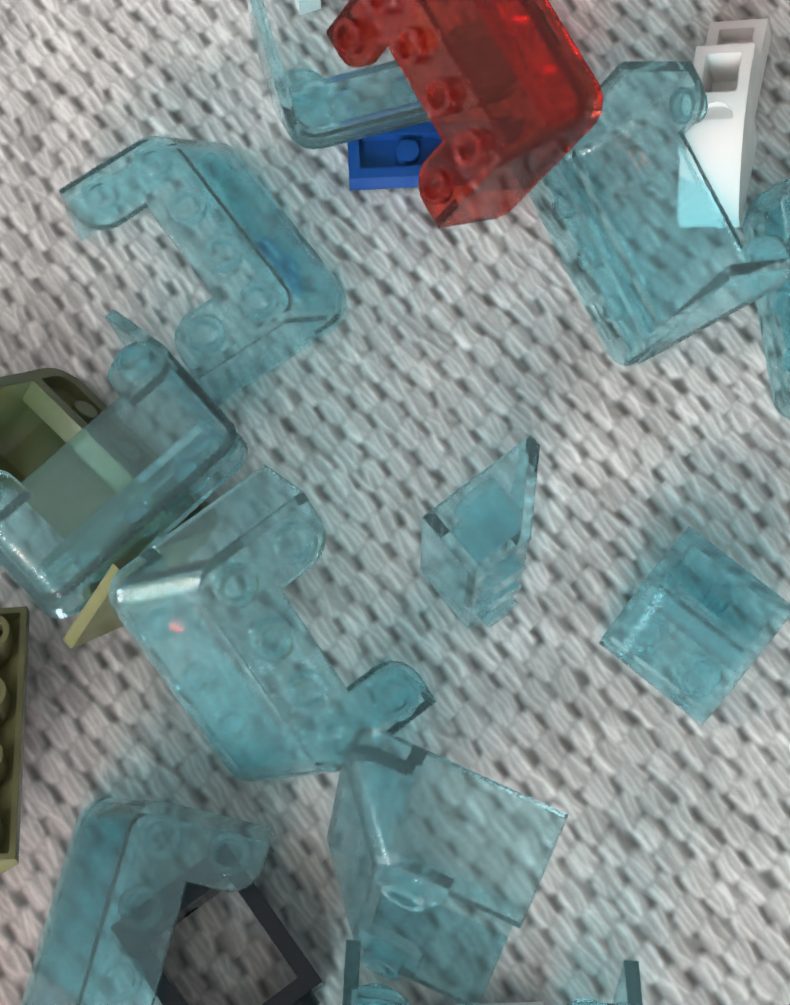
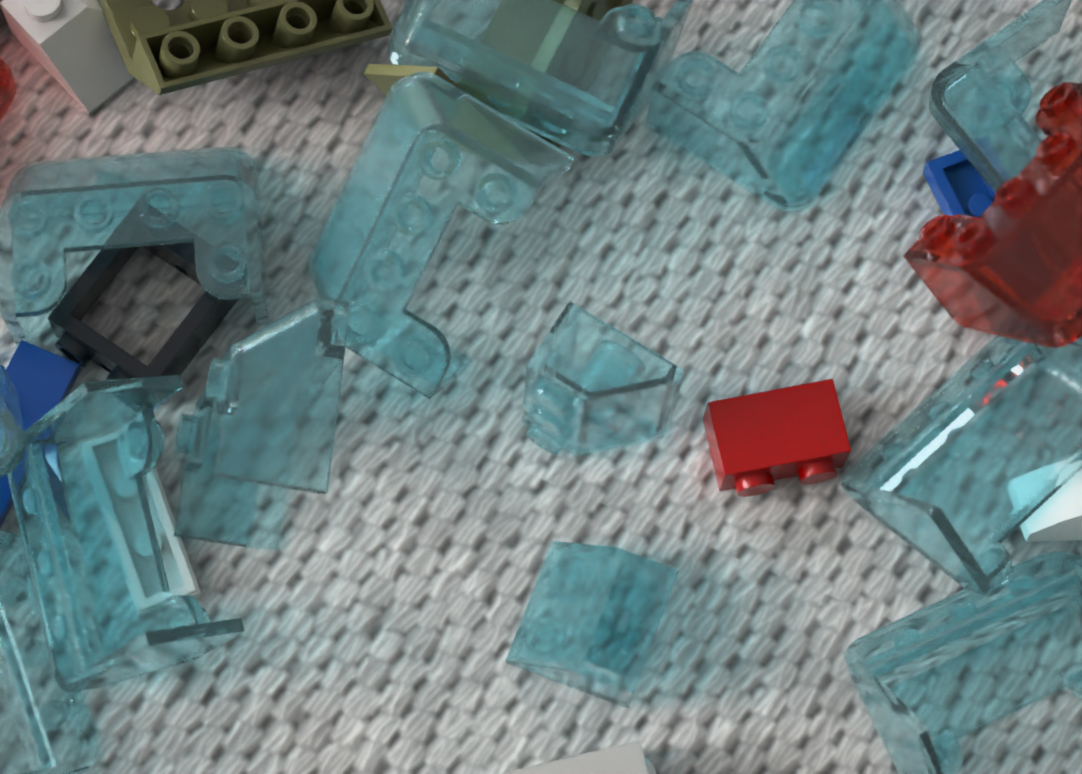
camera: 65 degrees right, 0 degrees up
(568, 400) = (776, 437): none -> red brick

